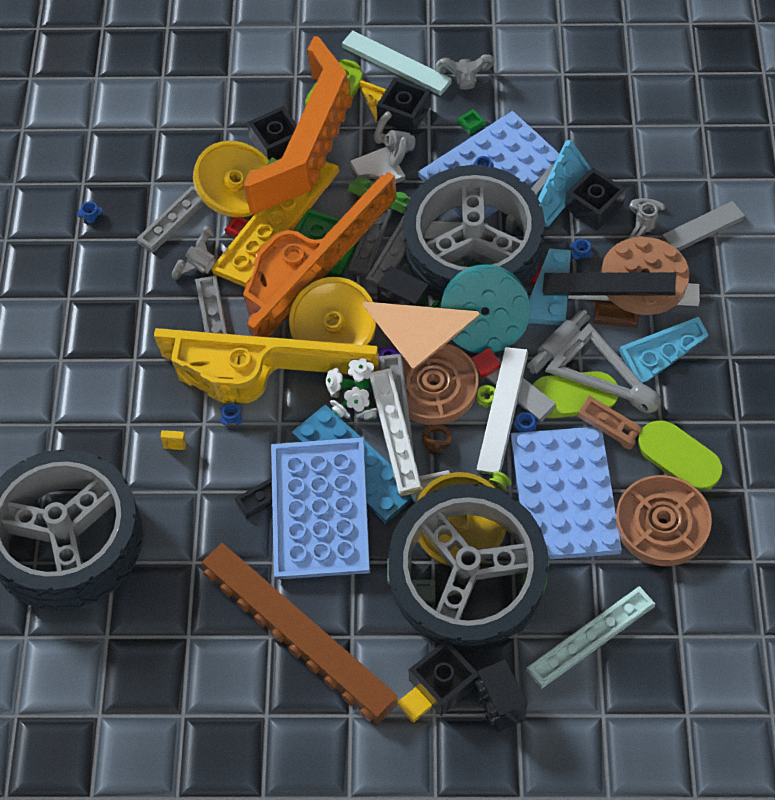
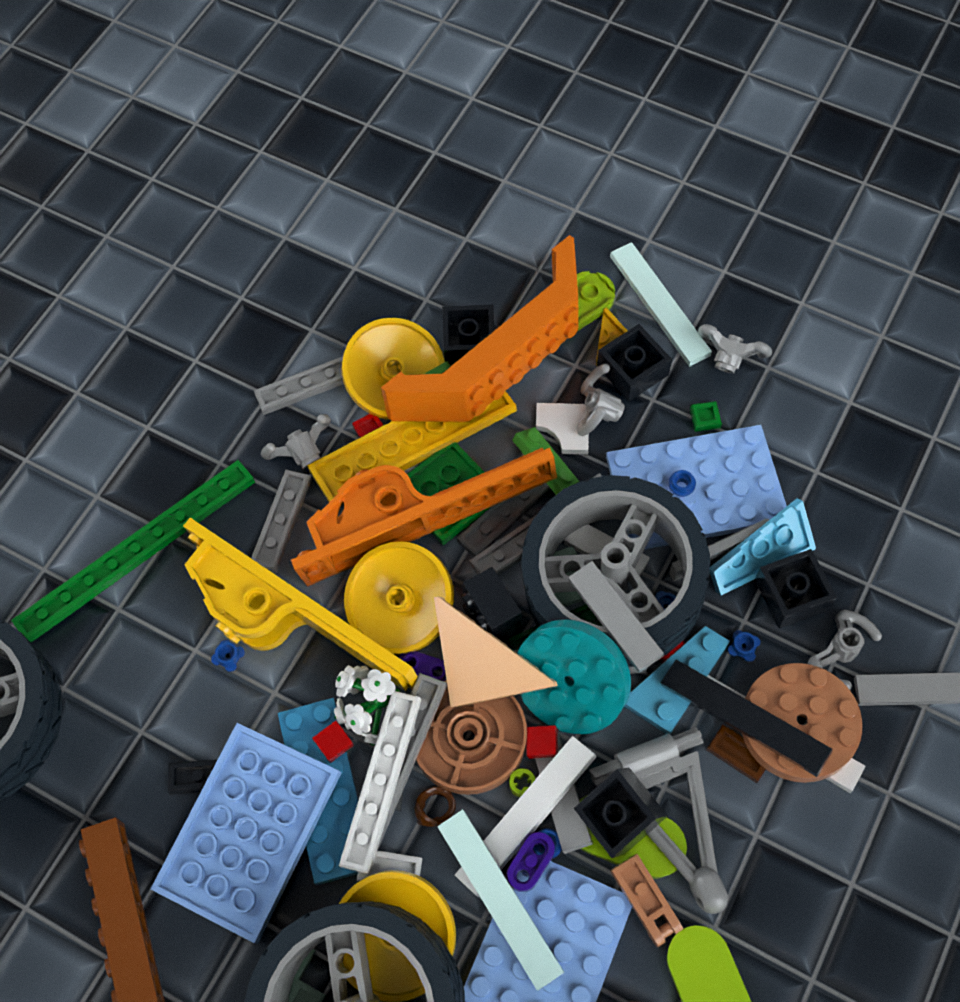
camera: 30 degrees right, 5 degrees up
(88, 207) = (225, 330): blue plate -> none
(121, 371) = (132, 552): none -> green plate
(173, 440) = (146, 657): yellow tile -> none
(344, 426) = (333, 741): none -> red tile
(495, 253) = (615, 616): none -> light grey tile
(500, 481) = (471, 907): lime bush -> none
(516, 464) = (501, 900): none -> light aqua tile
(523, 435) = (531, 863): none -> dark purple plate
(564, 373) = (620, 812): none -> black brick
(658, 351) = (760, 832): medium azure wing -> none

